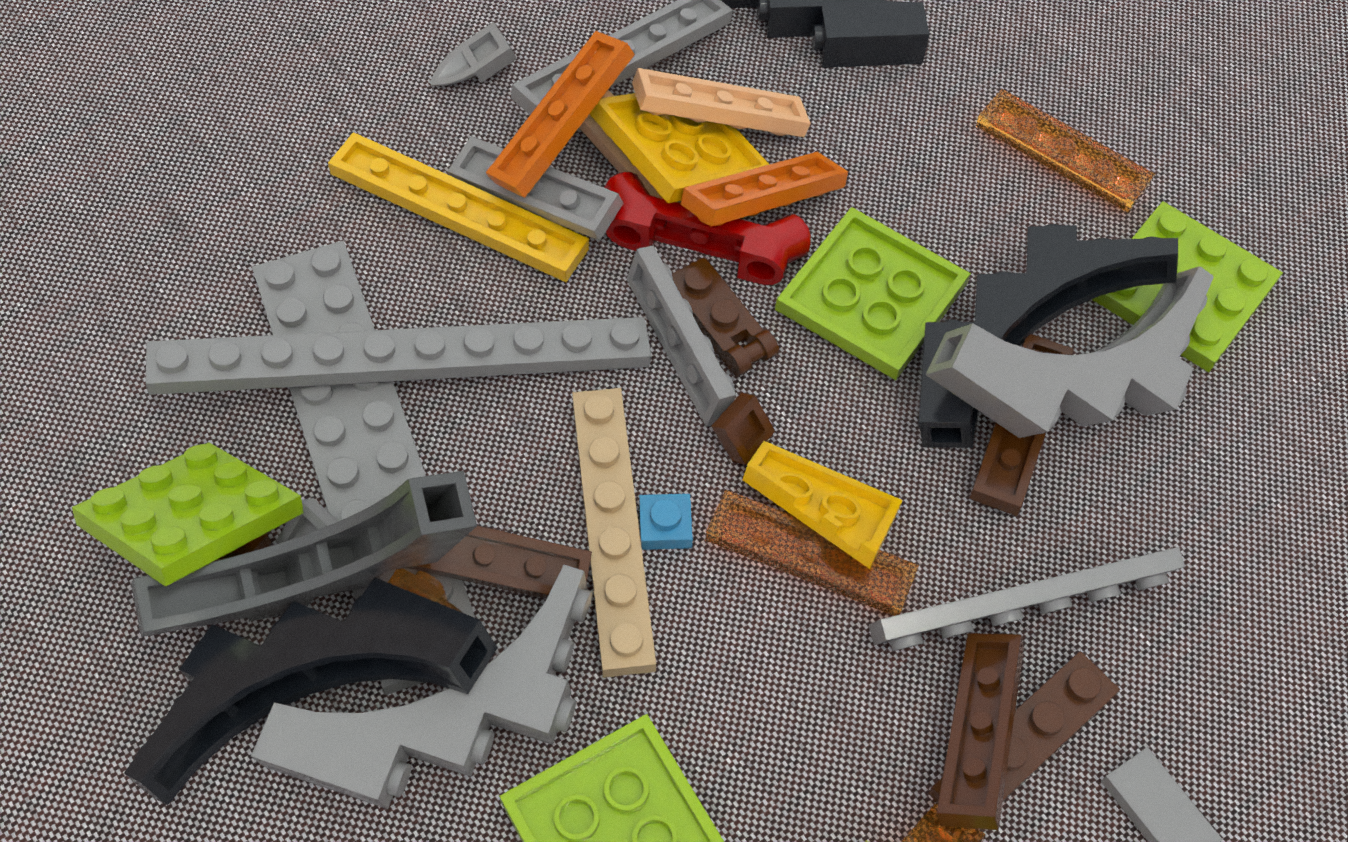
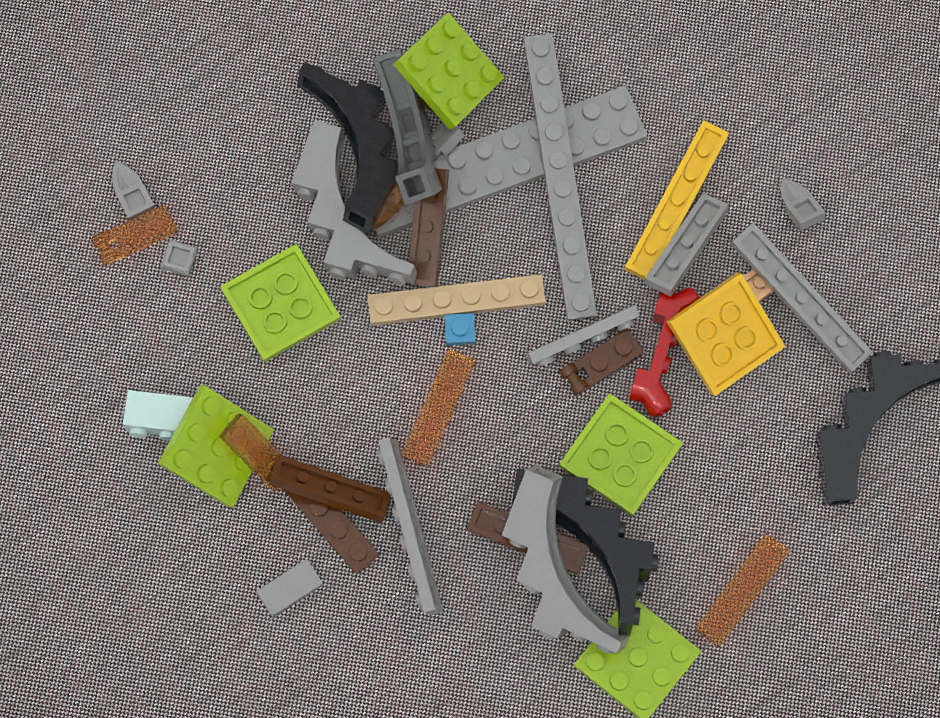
camera: 90 degrees right, 15 degrees up
(560, 113) = (726, 251): orange plate -> none
(720, 103) = (757, 359): light nougat plate -> none
(743, 428) = (517, 371): reddish brown plate -> none
(763, 188) = (688, 385): orange plate -> none
(826, 501) = (468, 416): yellow wing -> none

